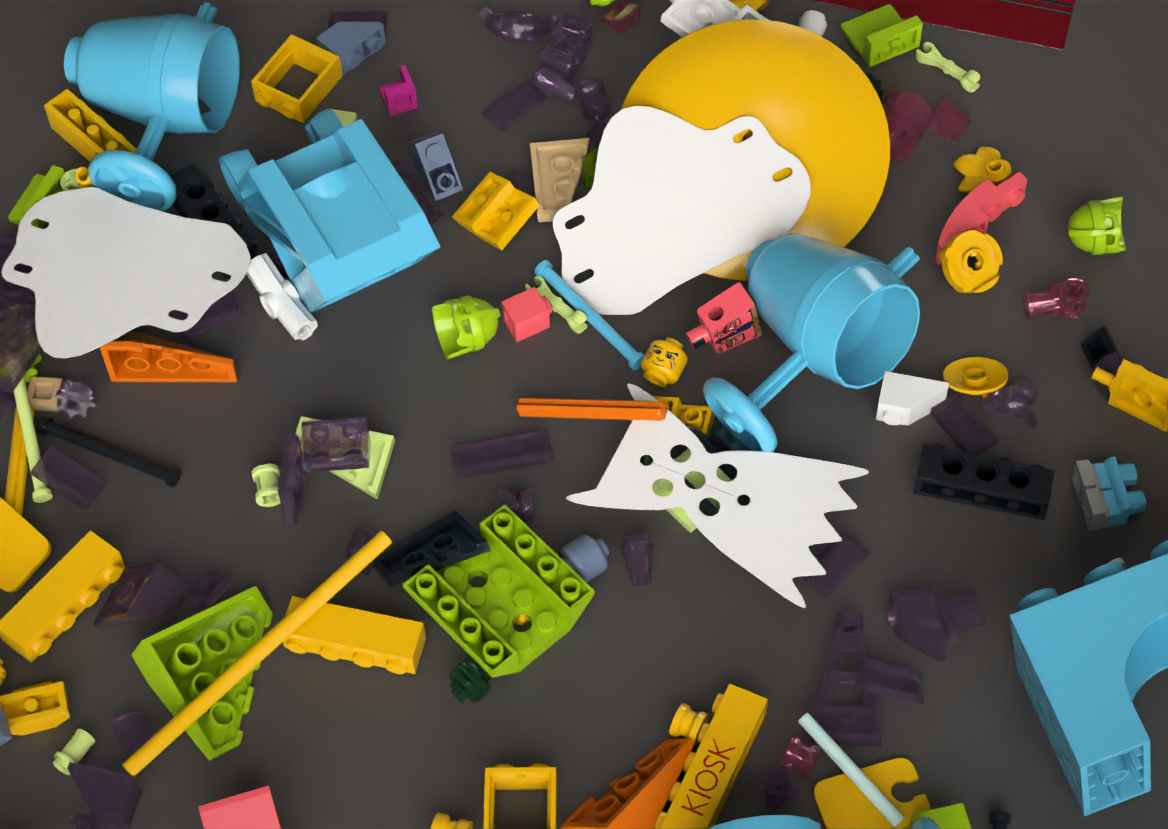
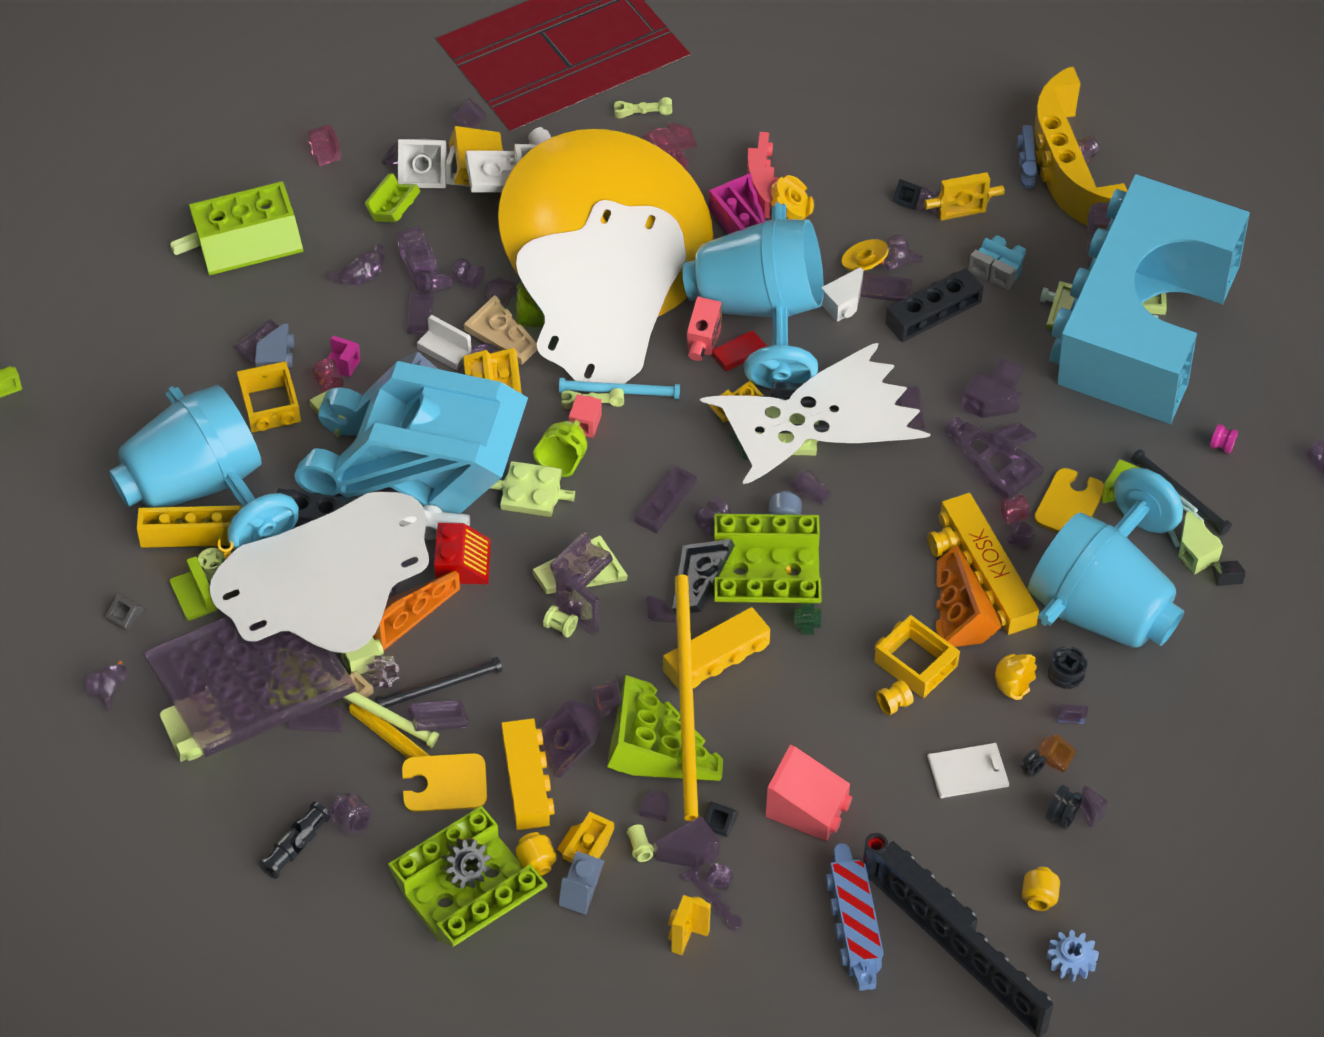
camera: 50 degrees left, 5 degrees down
(86, 366) = (358, 659): none -> yellowish green brick
(168, 796) = (720, 818): none -> black slope
(266, 350) = (463, 551): none -> red slope
(365, 99) = (327, 375): none -> clear pink wheel
(400, 343) = (532, 489): none -> yellowish green plate
(493, 149) = (445, 343): none -> white panel
(592, 409) = (694, 430): orange axle -> none
(621, 17) = (418, 216): clear pink slope -> none
(664, 362) = (695, 378): yellow head -> none
(742, 368) = (737, 350): none -> red tile
(851, 770) = (1047, 492): light aqua bar -> none
(882, 34) = (585, 114): lime bracket -> none
(909, 223) = (736, 204): none -> dark pink wedge
(980, 167) = (730, 149): yellow plate -> none
(1058, 300) = (858, 185): clear pink connector -> none
(1098, 227) = (832, 132): lime helmet -> none

